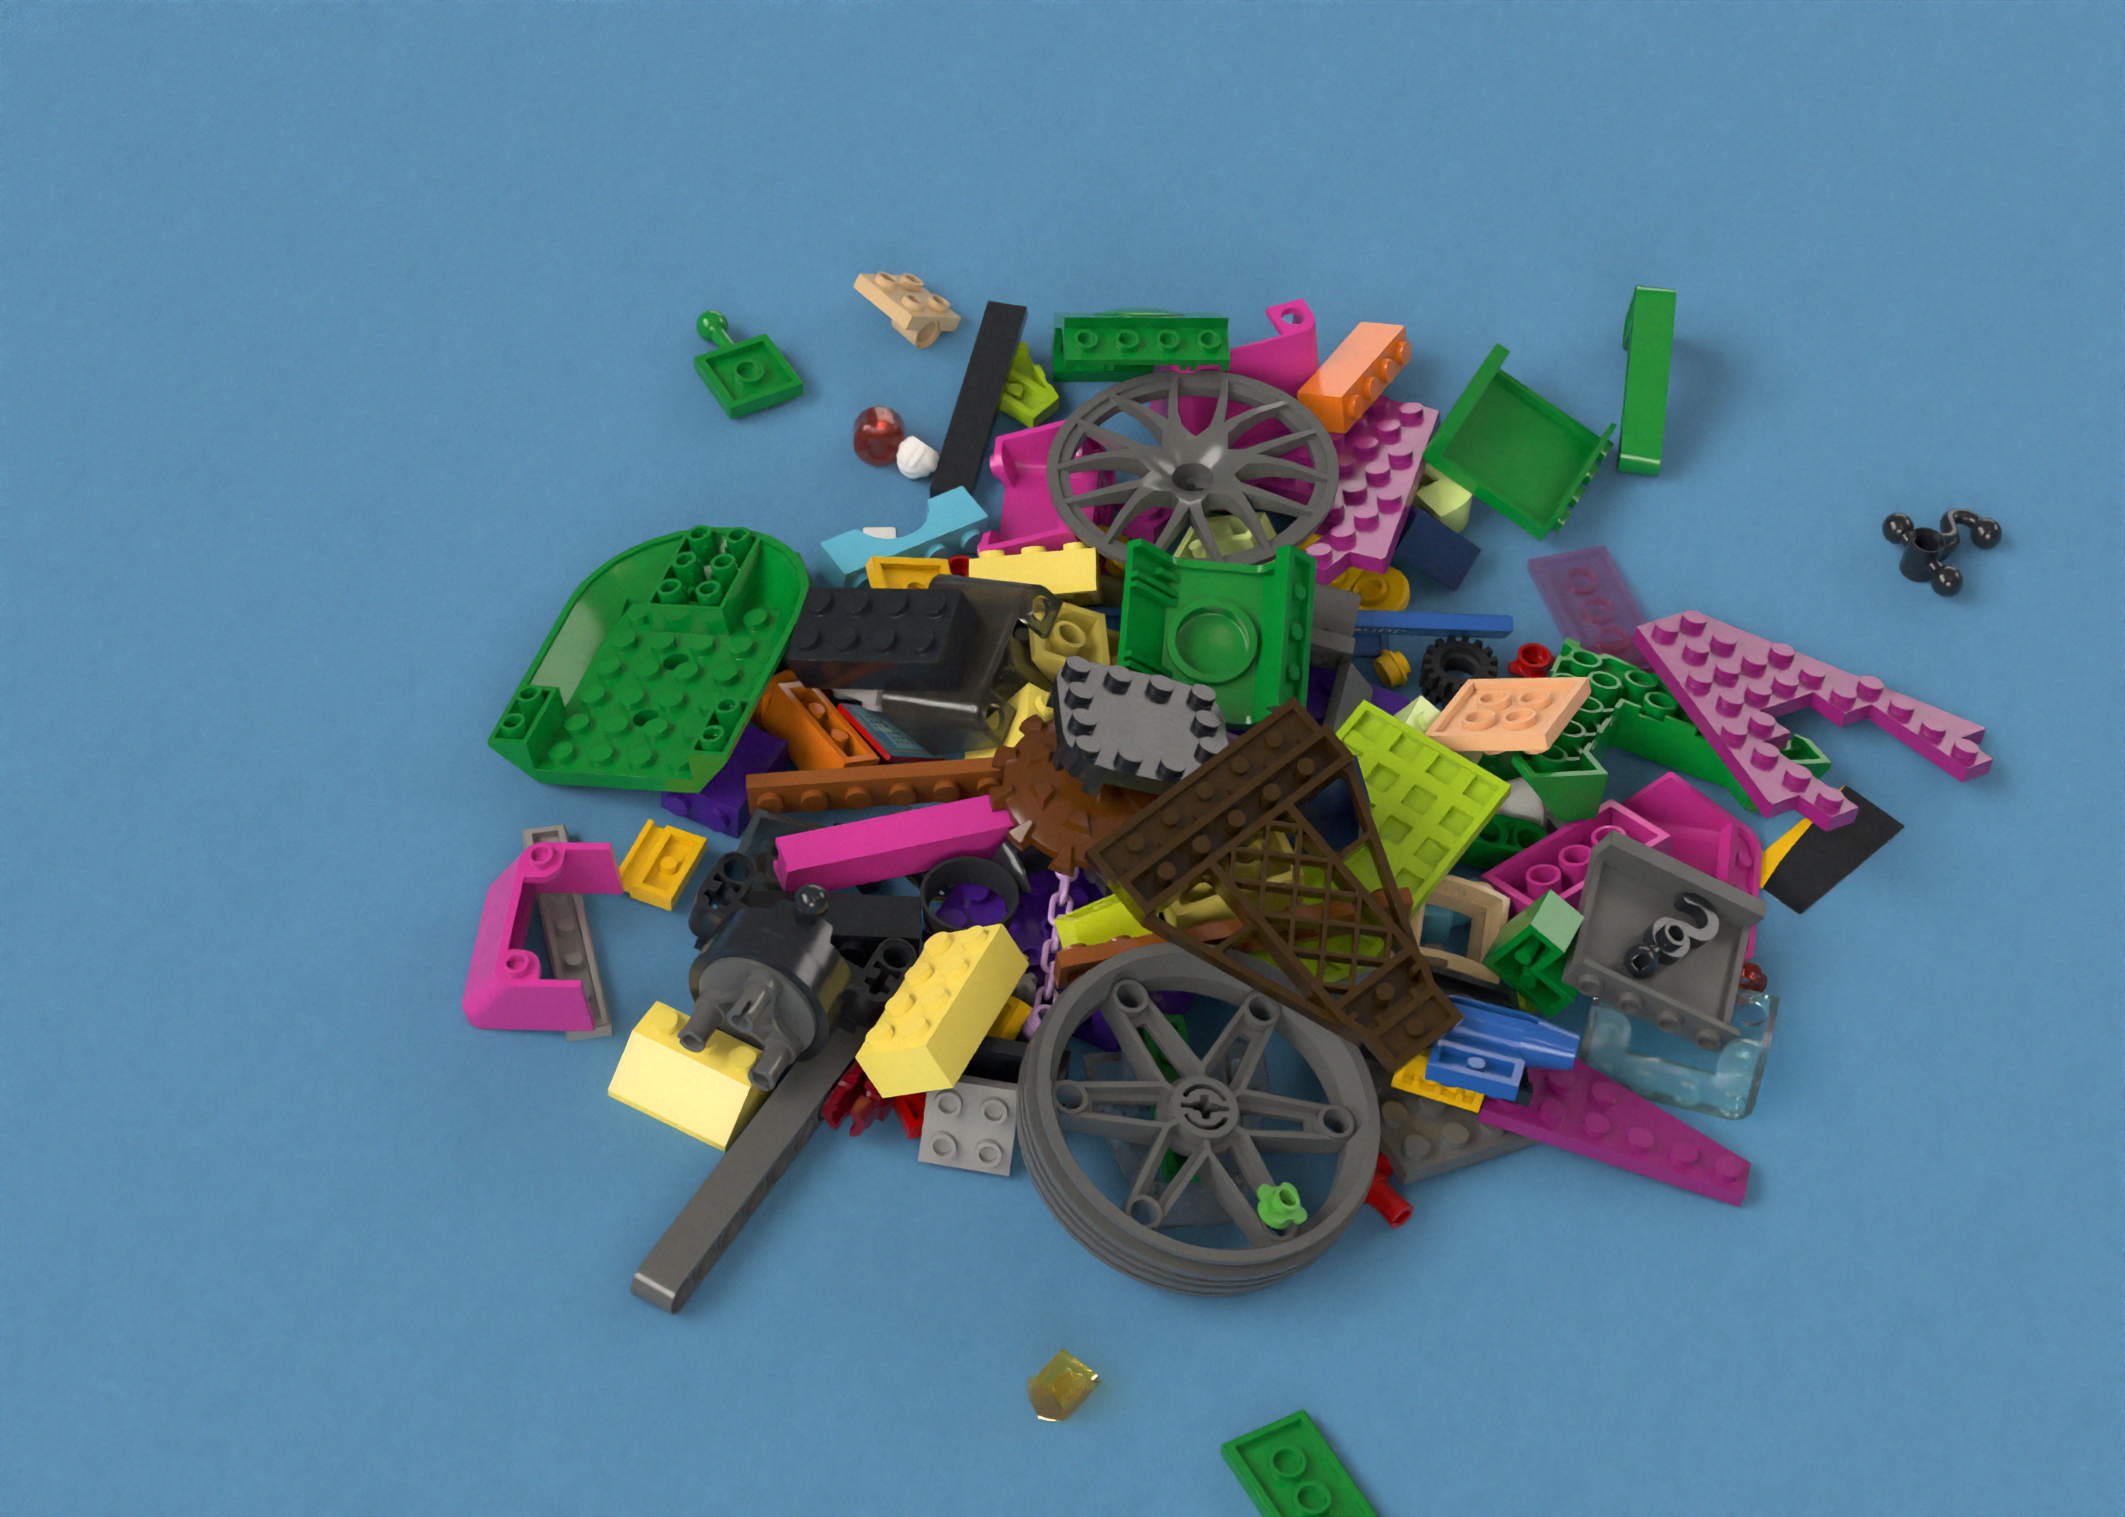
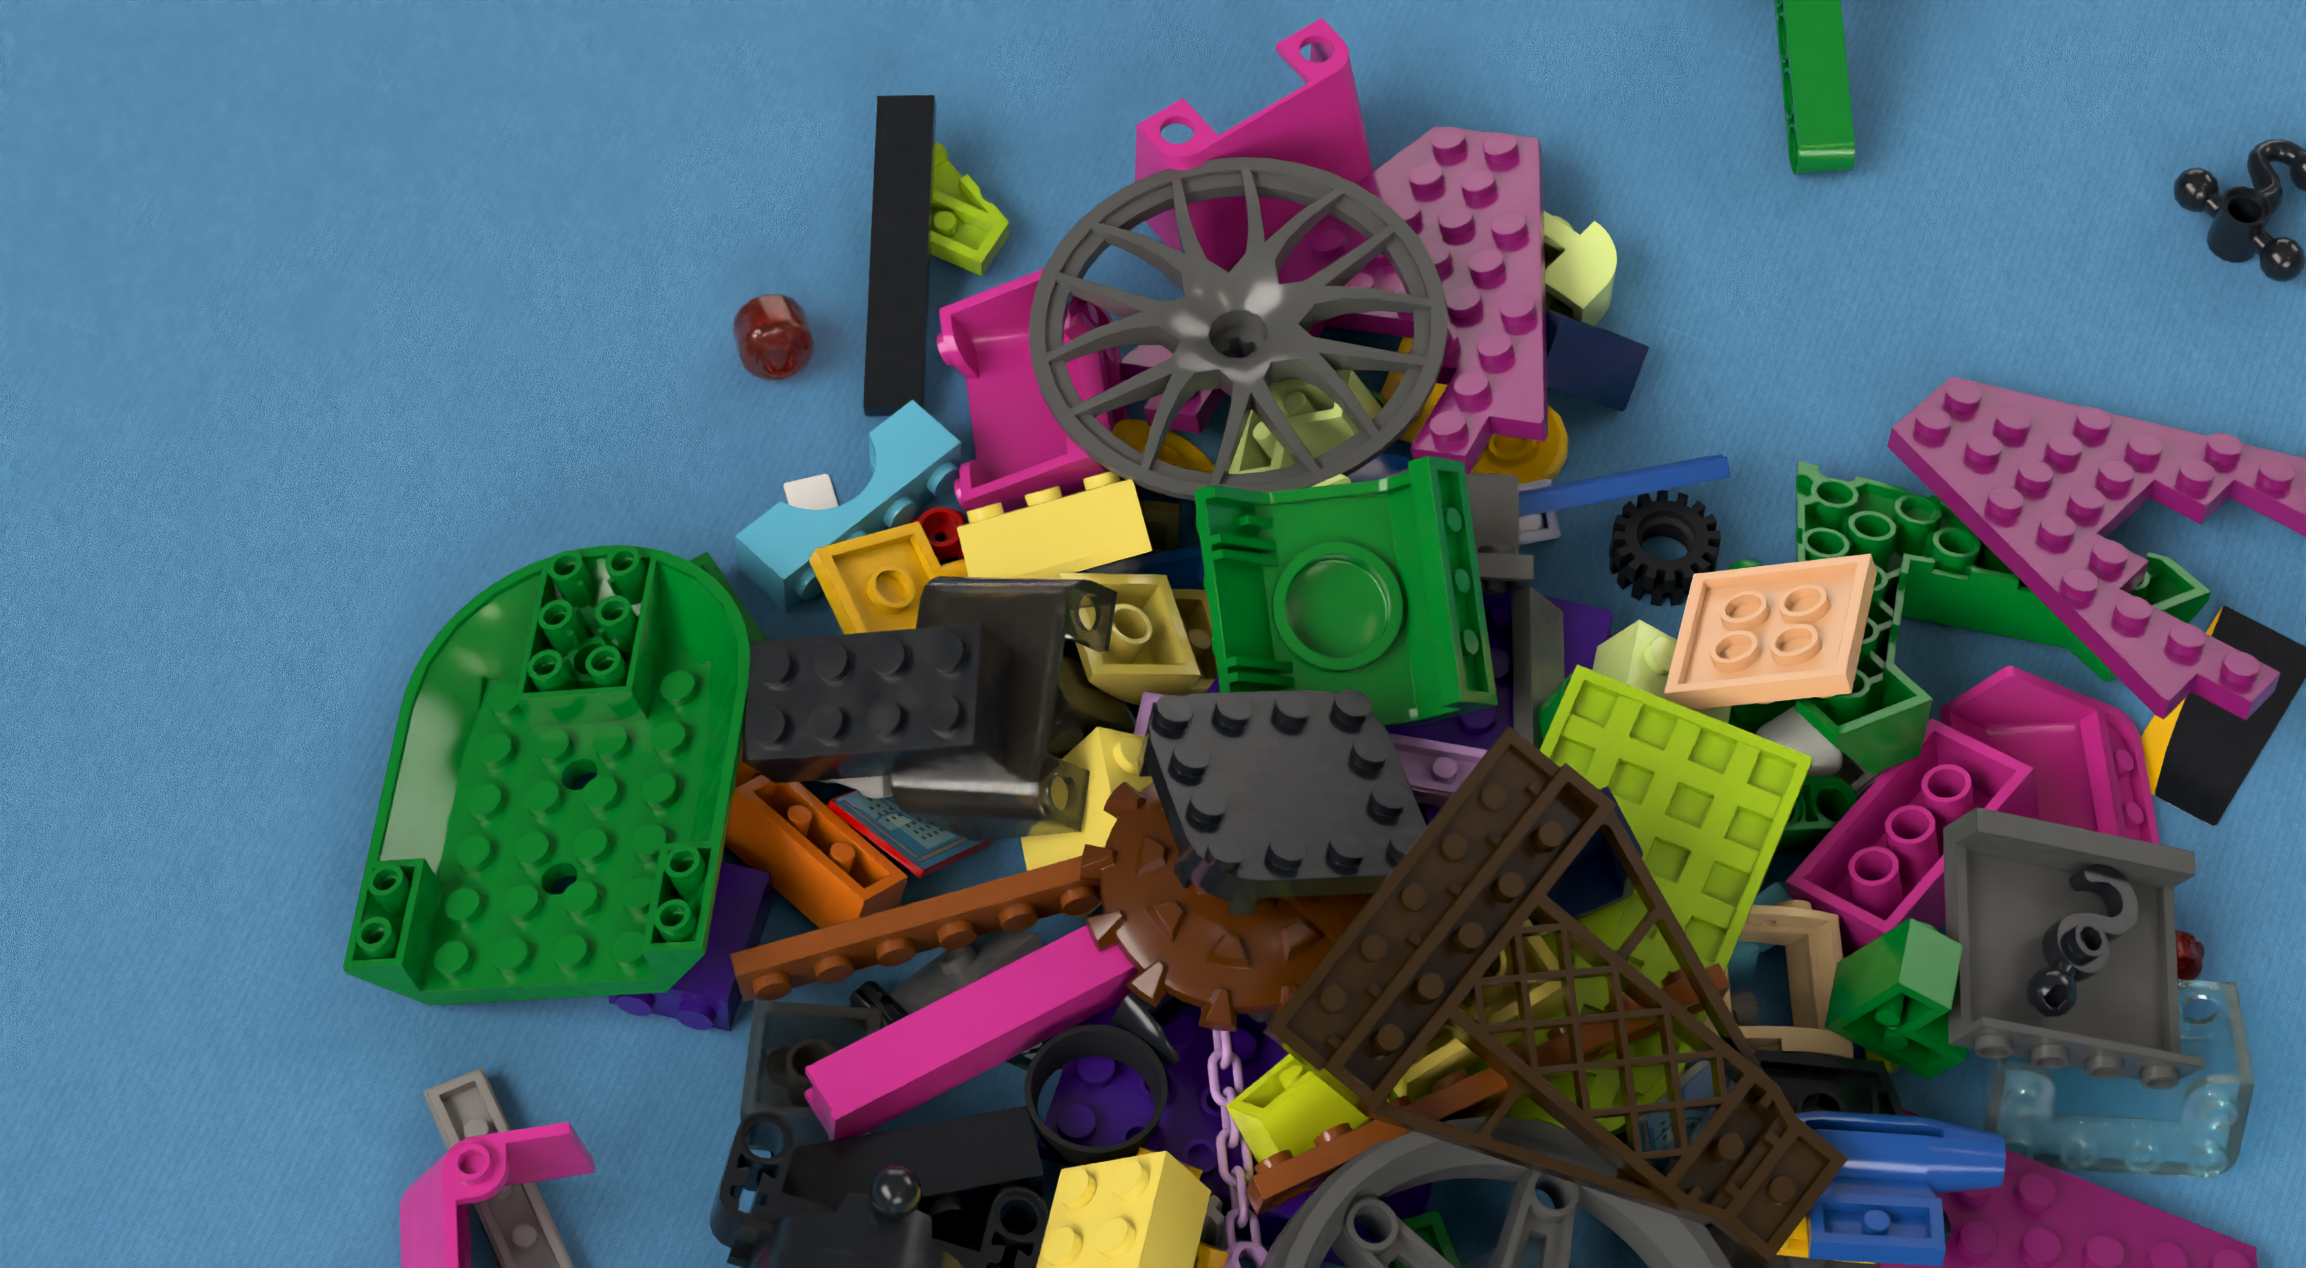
camera: 10 degrees left, 10 degrees up
(661, 864) = (634, 1104): yellow plate -> none
(744, 373) = (559, 273): green plate -> none
(912, 308) = (763, 117): tan plate -> none
(916, 458) = (834, 361): white piece -> none
(1132, 340) = (1109, 126): green panel -> none
(1355, 374) = (1410, 108): orange brick -> none
(1392, 668) = (1571, 559): yellow plate -> none
(1516, 449) = (1659, 179): green panel -> none
(1532, 661) = (1763, 495): red plate -> none
(1590, 602) = (1814, 395): tile -> none

